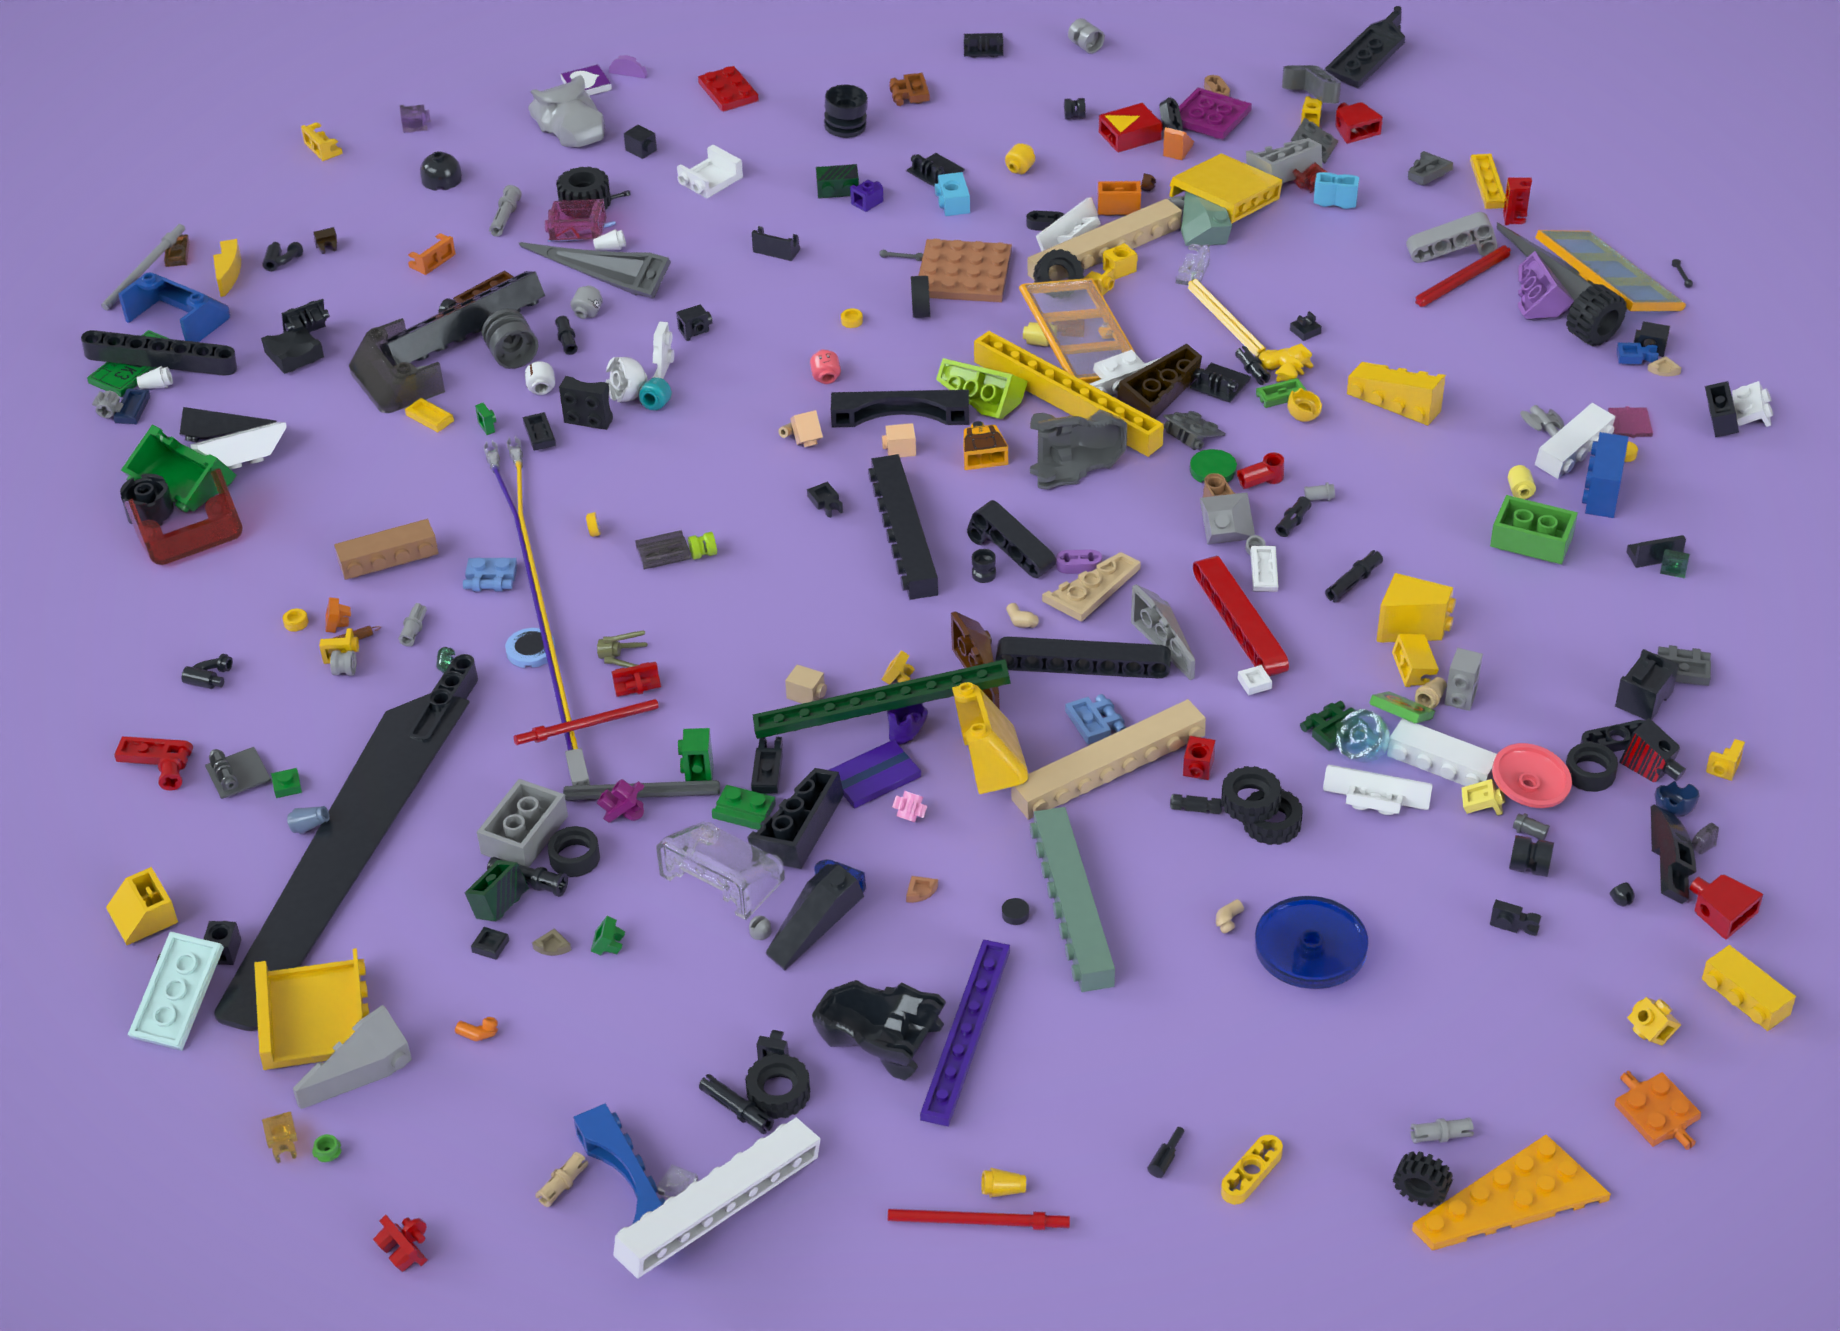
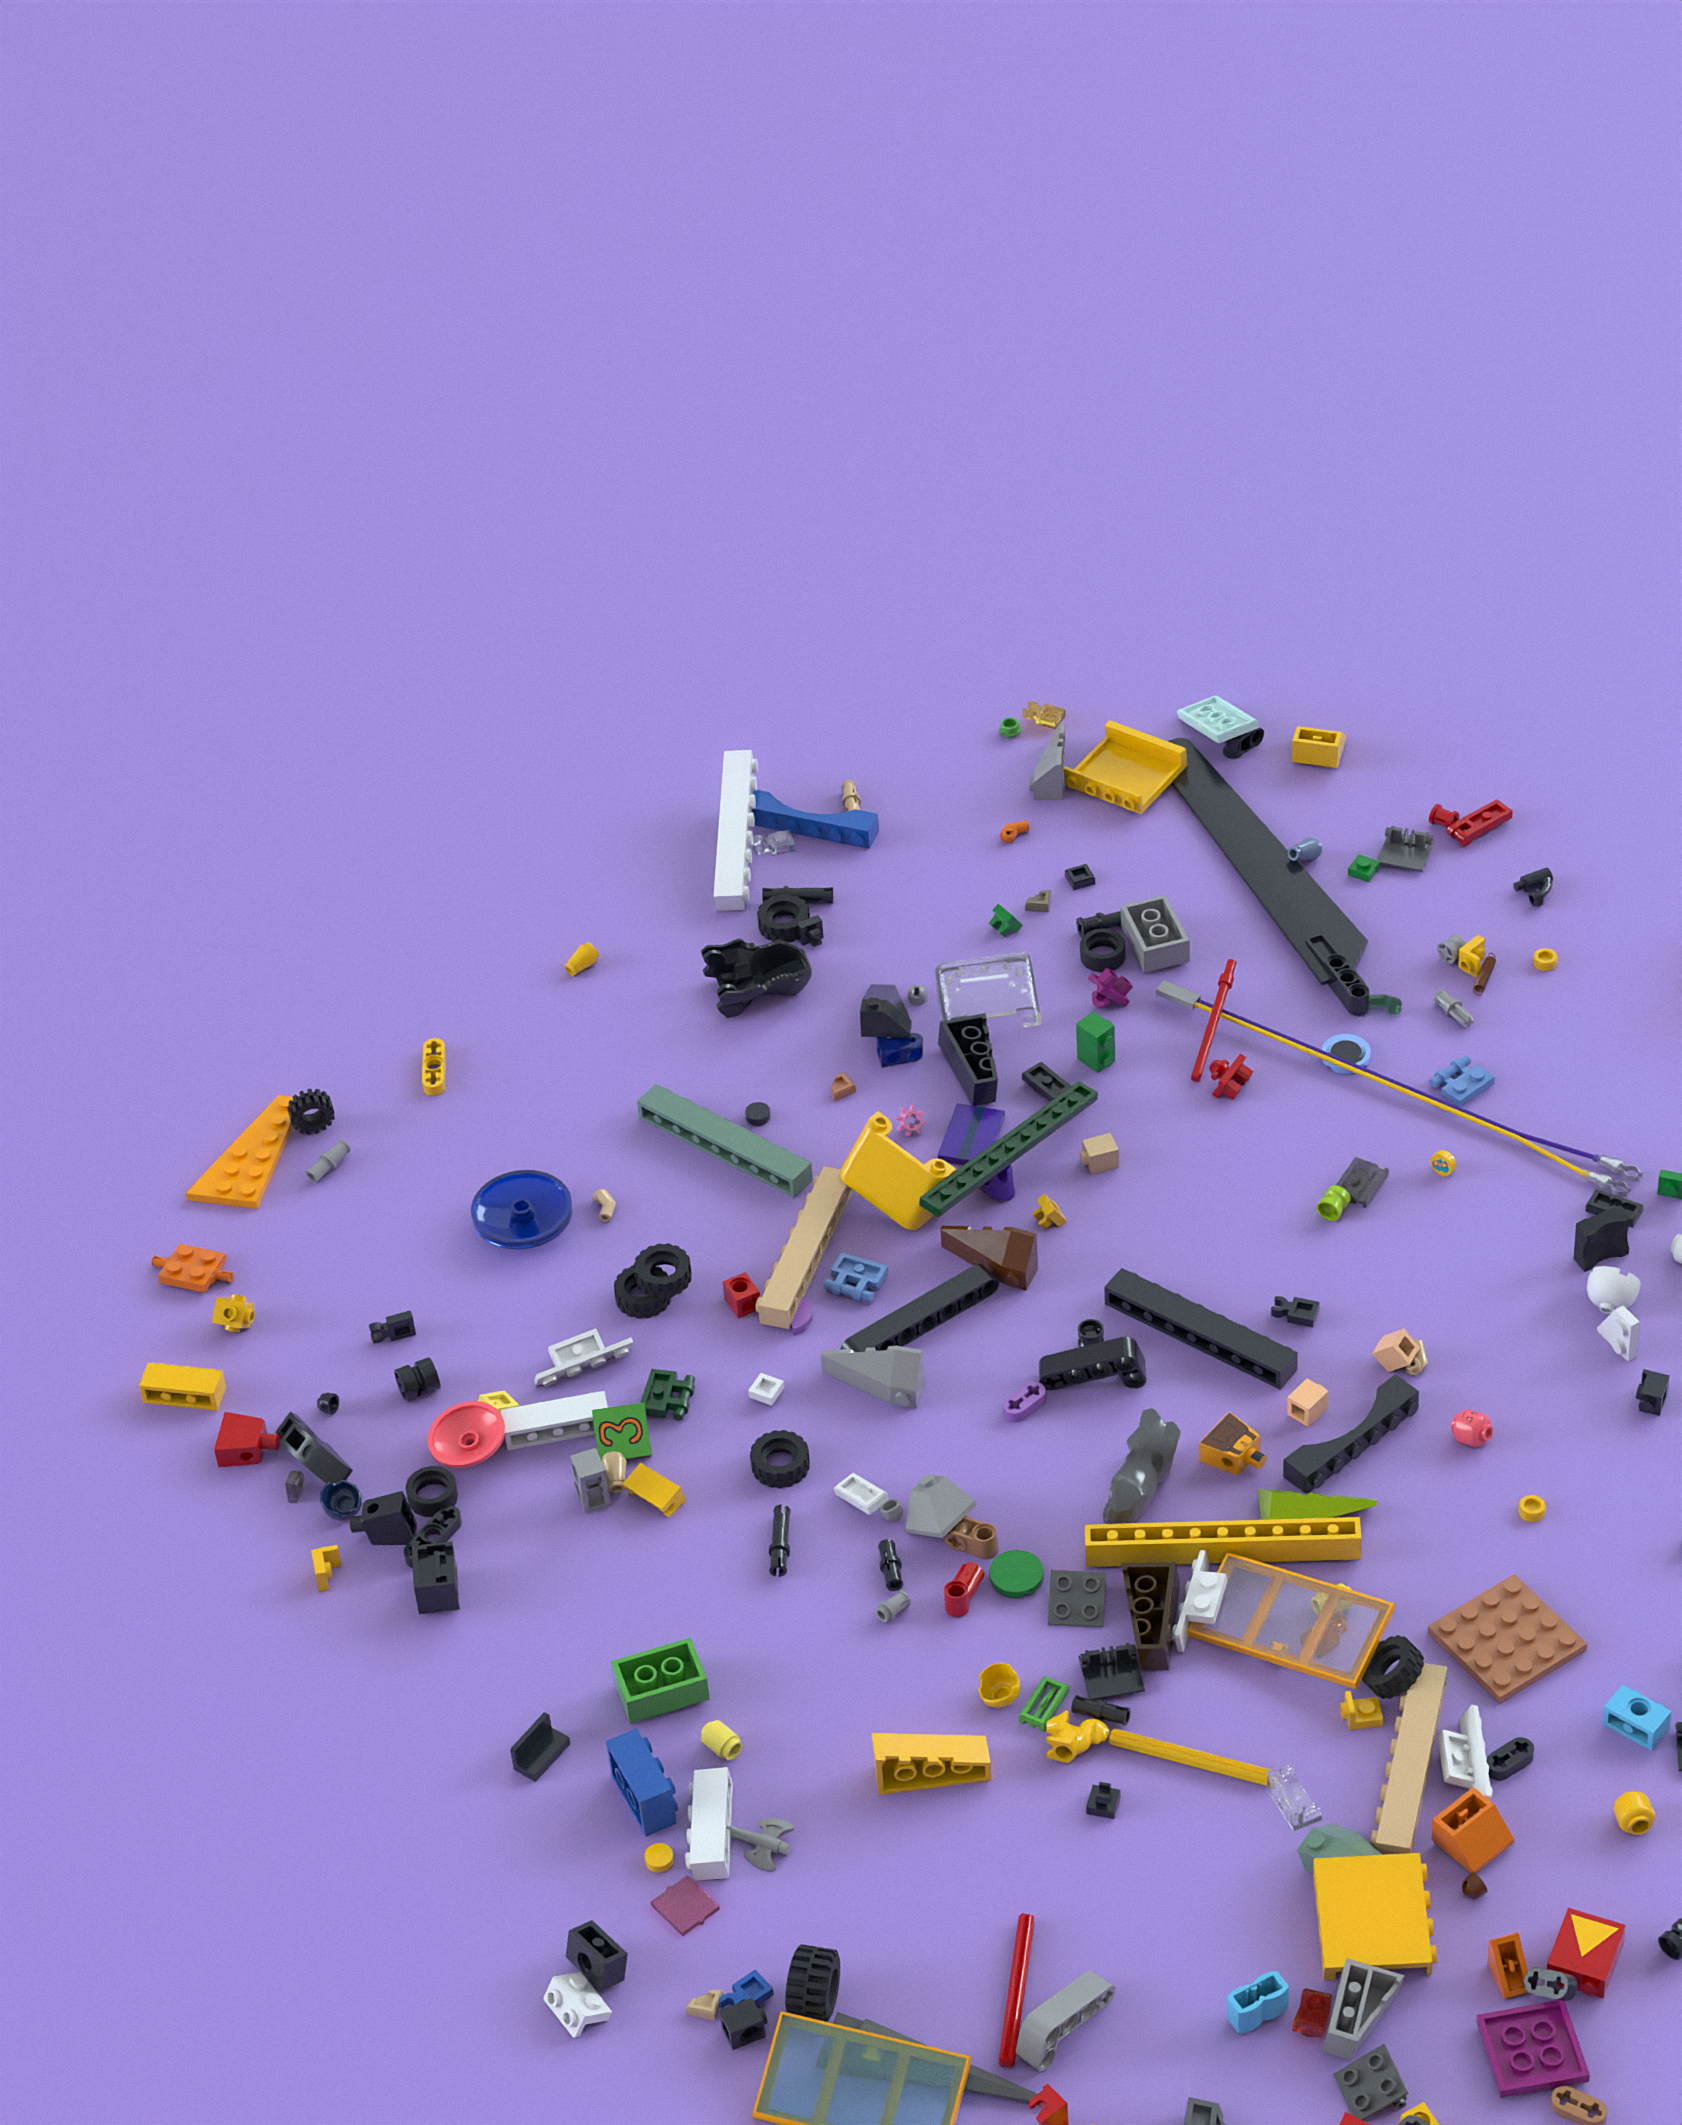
camera: 140 degrees right, 0 degrees up
(227, 935) = (1240, 763): black brick -> none
(334, 615) = (1515, 972): orange tile -> none
(386, 549) = (1557, 1033): medium nougat brick -> none
(393, 1234) = (897, 718): red hips -> none
(496, 890) = (1109, 887): dark green brick -> none
(610, 647) = (1281, 1086): olive plant -> none
(655, 393) = (1573, 1300): teal head -> none
(657, 789) = (1123, 1012): dark grey axle -> none
(743, 807) = (1031, 1052): green plate -> none
(883, 253) = (1608, 1605): dark grey hinge -> none
(920, 296) = (1489, 1563): black tyre -> none
(965, 1033) = (703, 1022): dark purple plate -> none
(1021, 619) = (1012, 1319): tan arm -> none
(1037, 1220) = (541, 957): red bar -> none
(1092, 587) = (984, 1381): tan wing -> none
(1120, 259) = (1367, 1747): yellow brick -> none
(1165, 1155) = (497, 1039): black axle -> none
(1195, 803) = (712, 1266): black axle -> none
(1240, 615) = (837, 1435): red beam -> none
(1298, 612) = (779, 1475): none -> black tyre
(1363, 736) = (623, 1383): clear light blue cylinder -> none
(1415, 608) = (687, 1518): yellow slope -> none
(1530, 826) = (437, 1408): dark grey pin -> none
(1540, 290) = (902, 2006): medium lavender wedge -> none
(1674, 563) = (507, 1738): plate -> none
(1693, 664) = (425, 1633): dark grey plate -> none

